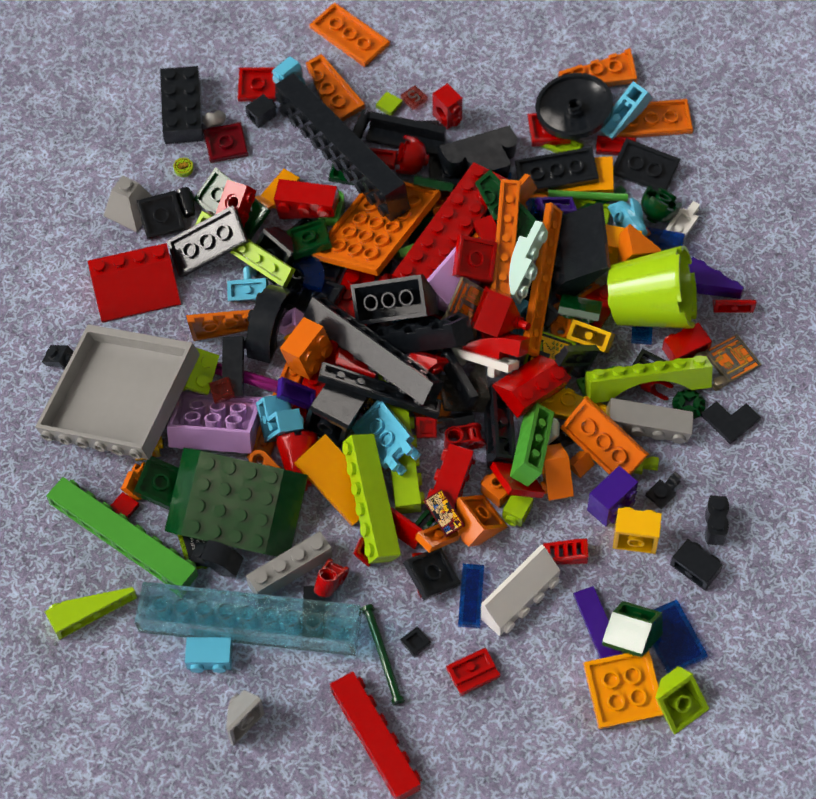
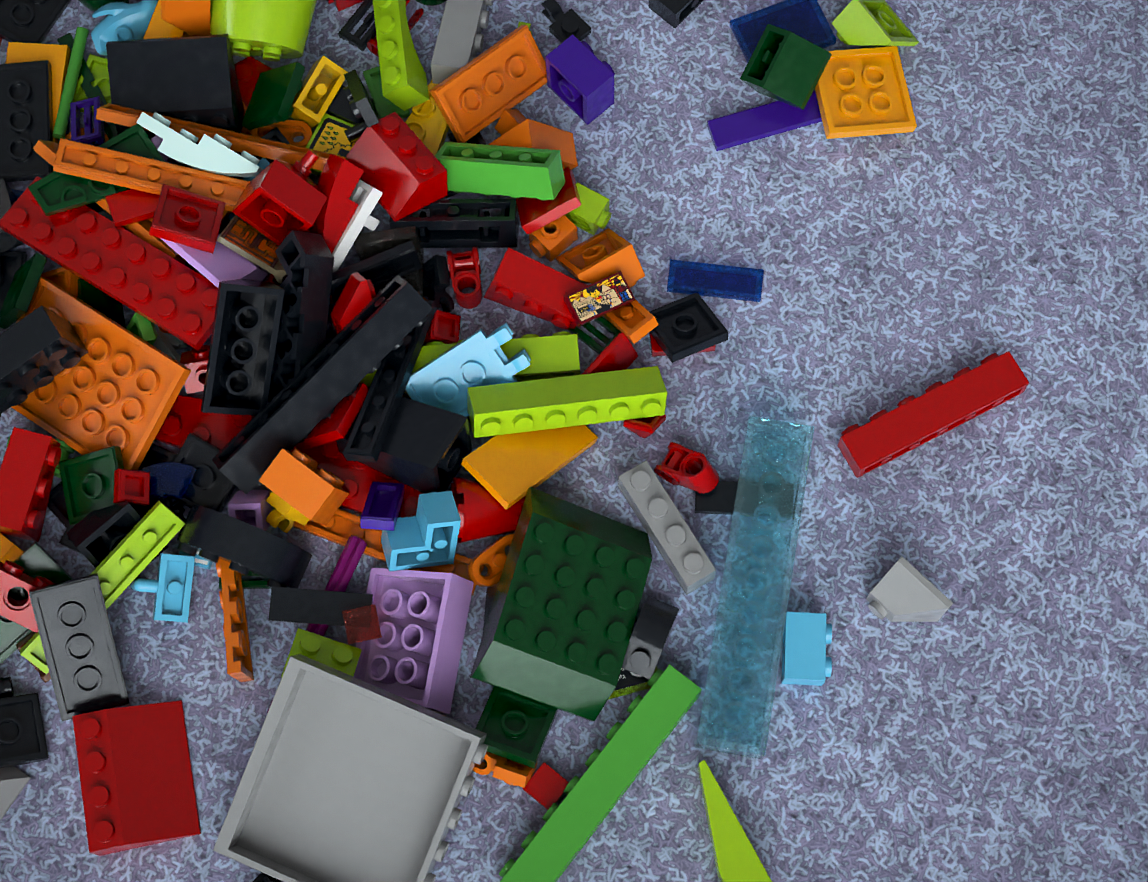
camera: 85 degrees left, 10 degrees up
(305, 256) = (131, 487): none -> red tile
(384, 659) = (870, 385): dark green bar -> none
(415, 641) = (784, 358): black tile -> none
(473, 671) = (833, 282): red plate -> none
(520, 591) = (718, 210): white slope -> none
(574, 544) = (653, 133): red slope -> none
(637, 530) = (634, 51): yellow brick -> none
(641, 335) = (318, 34): clear blue tile -> none

